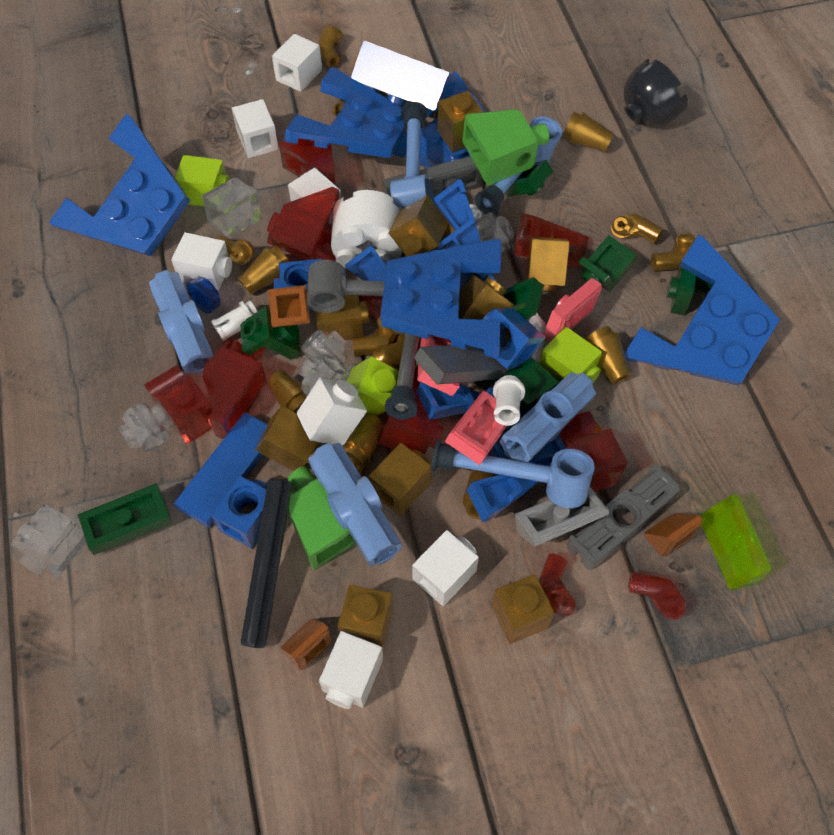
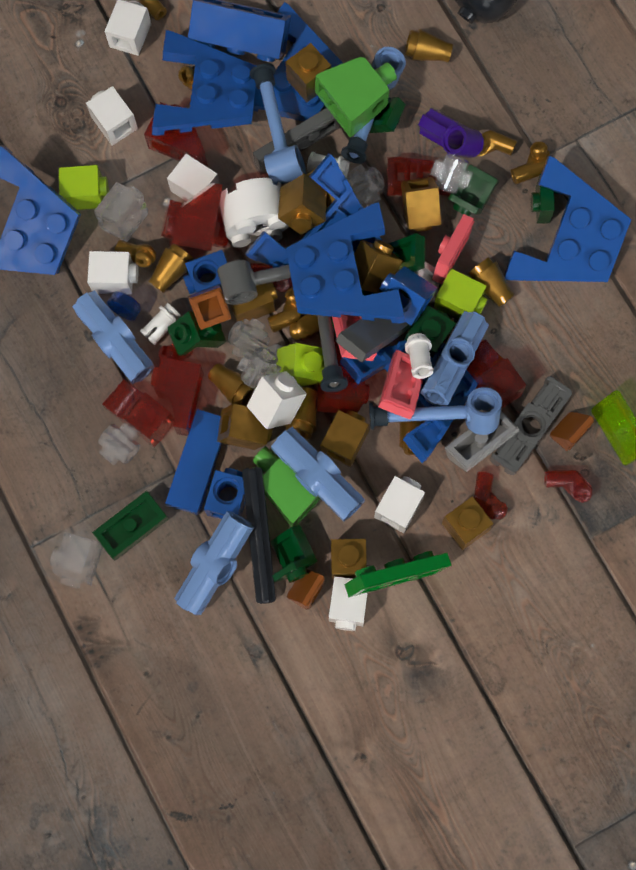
camera: 10 degrees left, 15 degrees up
(201, 581) = (213, 563): none -> medium blue piece
(302, 596) = (293, 554): none -> dark green bracket
(418, 645) = (396, 573): none -> green plate
(587, 238) = (451, 173): none -> clear gear
(595, 206) = (450, 134): none -> dark purple piece

